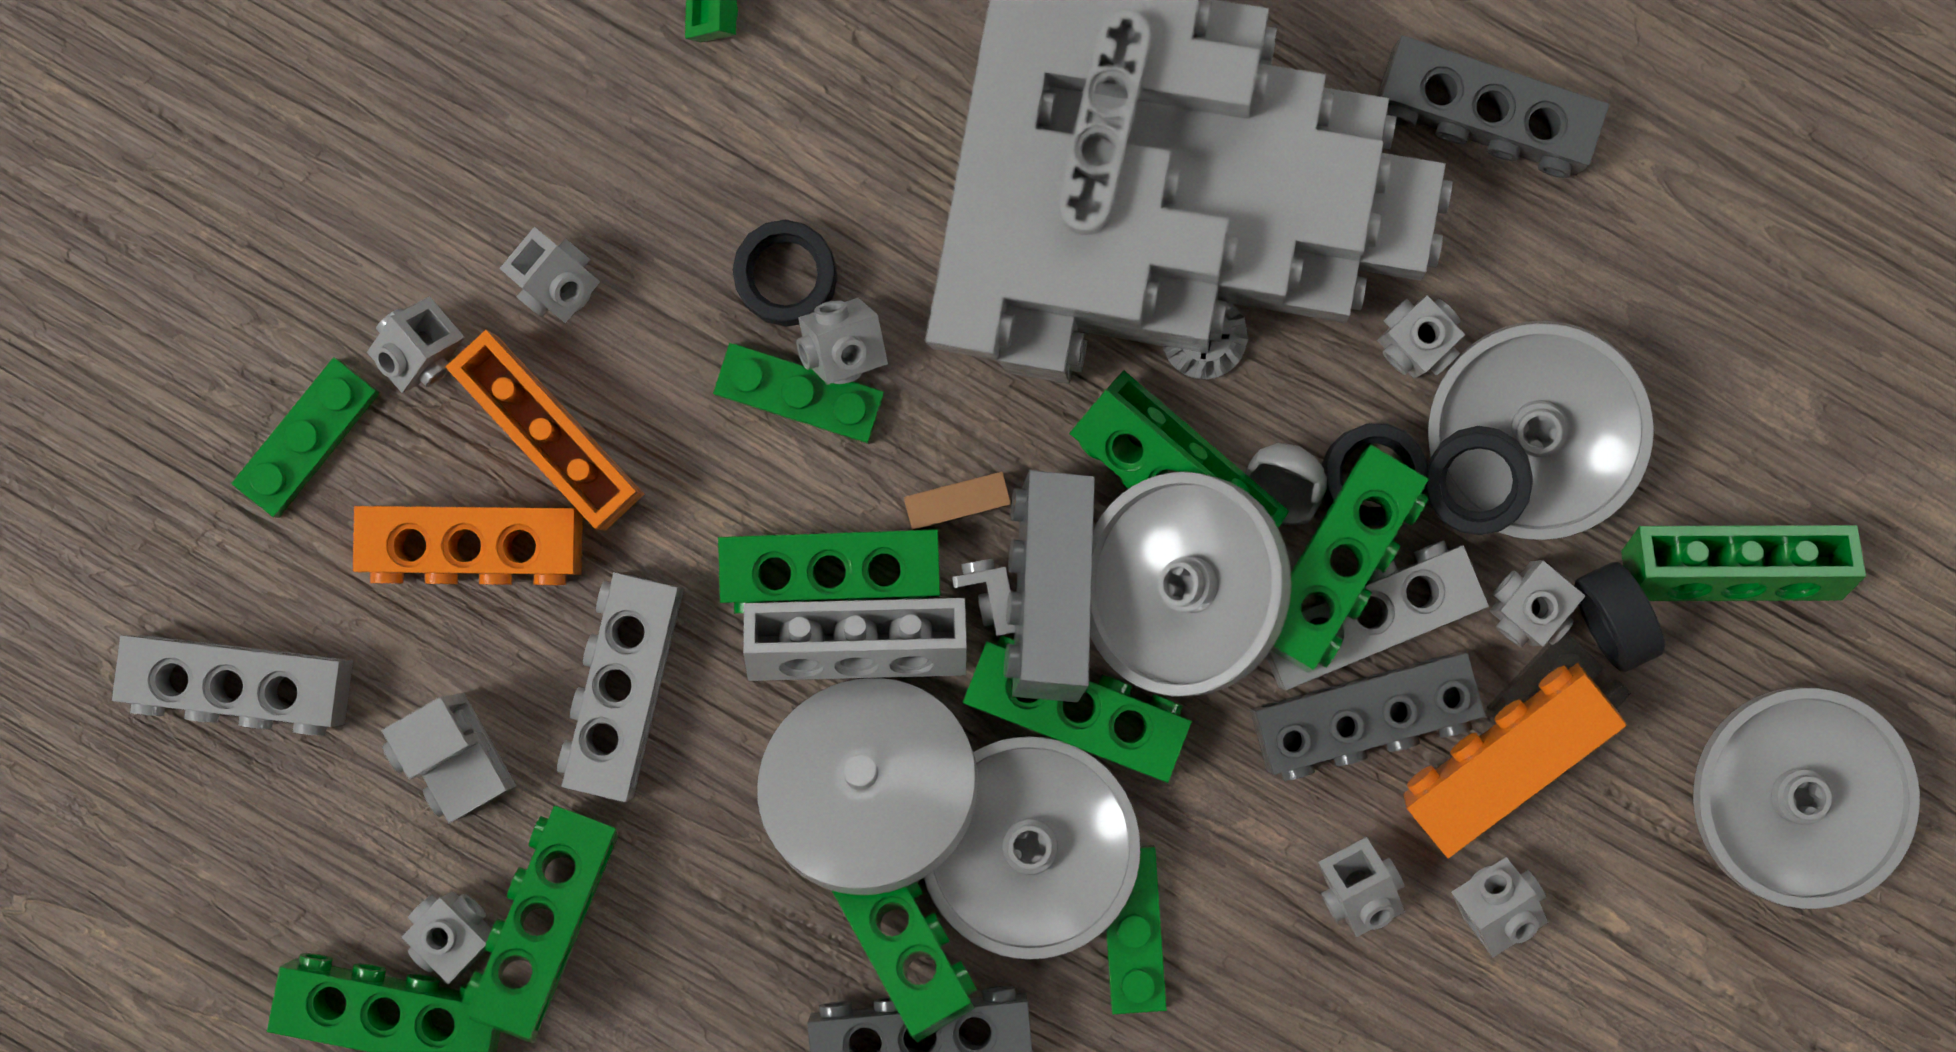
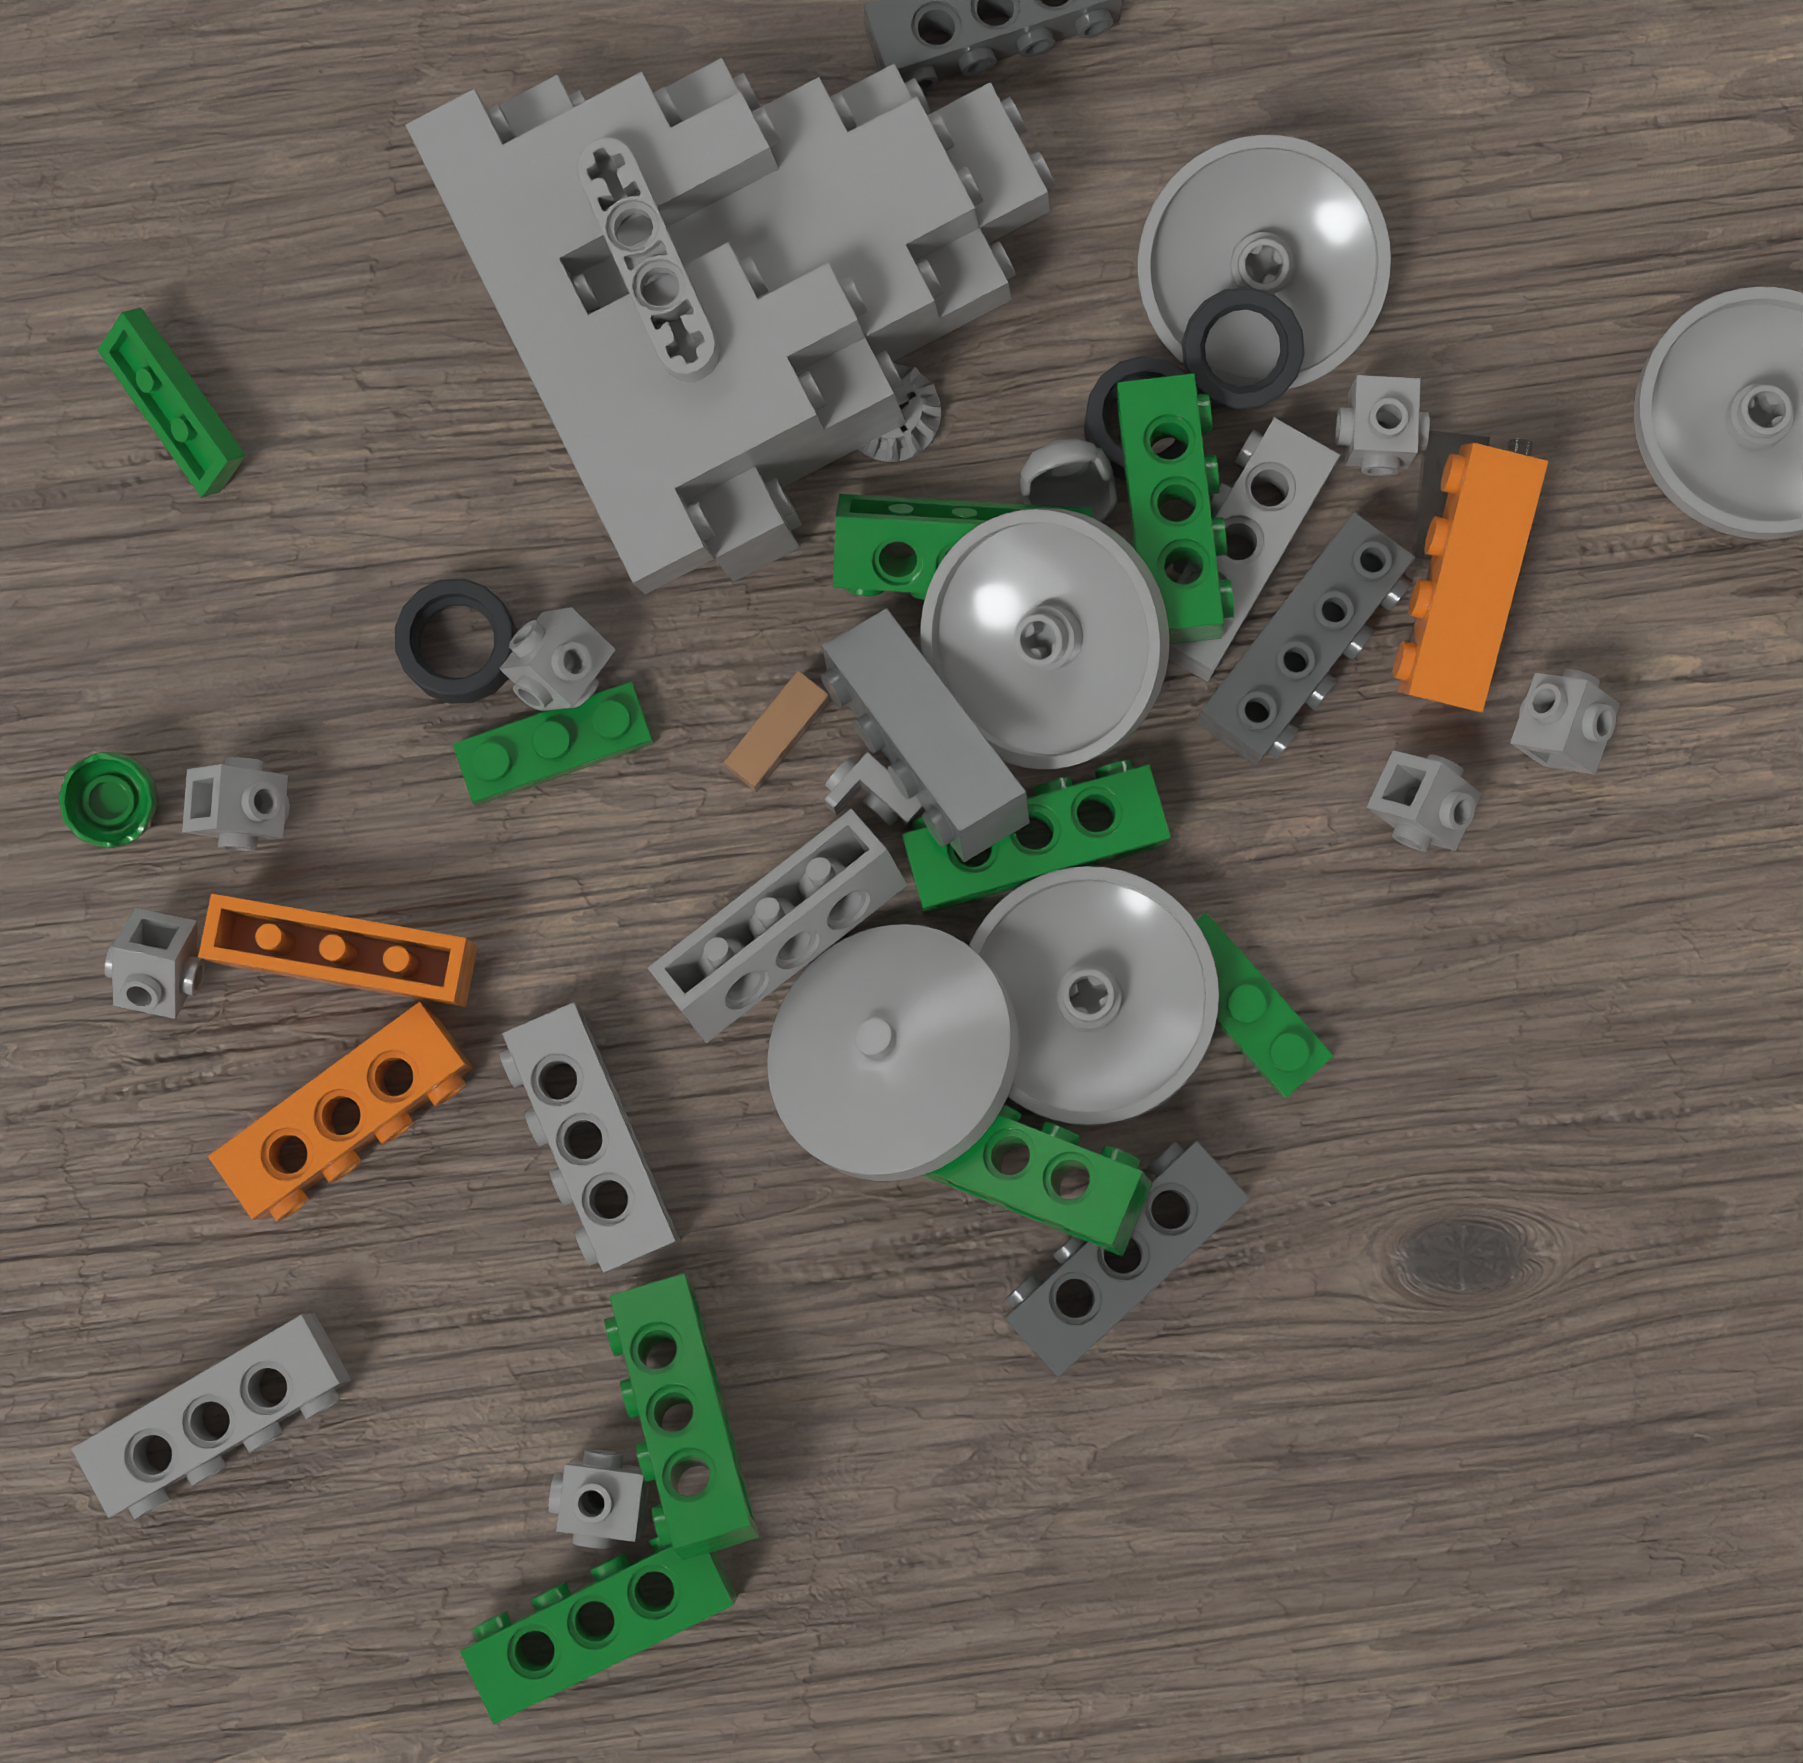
camera: 30 degrees left, 5 degrees down
(305, 438) = (113, 1134): green plate -> none
(451, 754) = (473, 1323): light grey brick -> none
(466, 206) = (108, 799): none -> green hair
(745, 556) = (616, 926): green brick -> none
(1403, 345) = (1085, 281): light grey brick -> none
(1620, 617) = (1467, 375): black tyre -> none
(1745, 562) = (1539, 246): green brick -> none

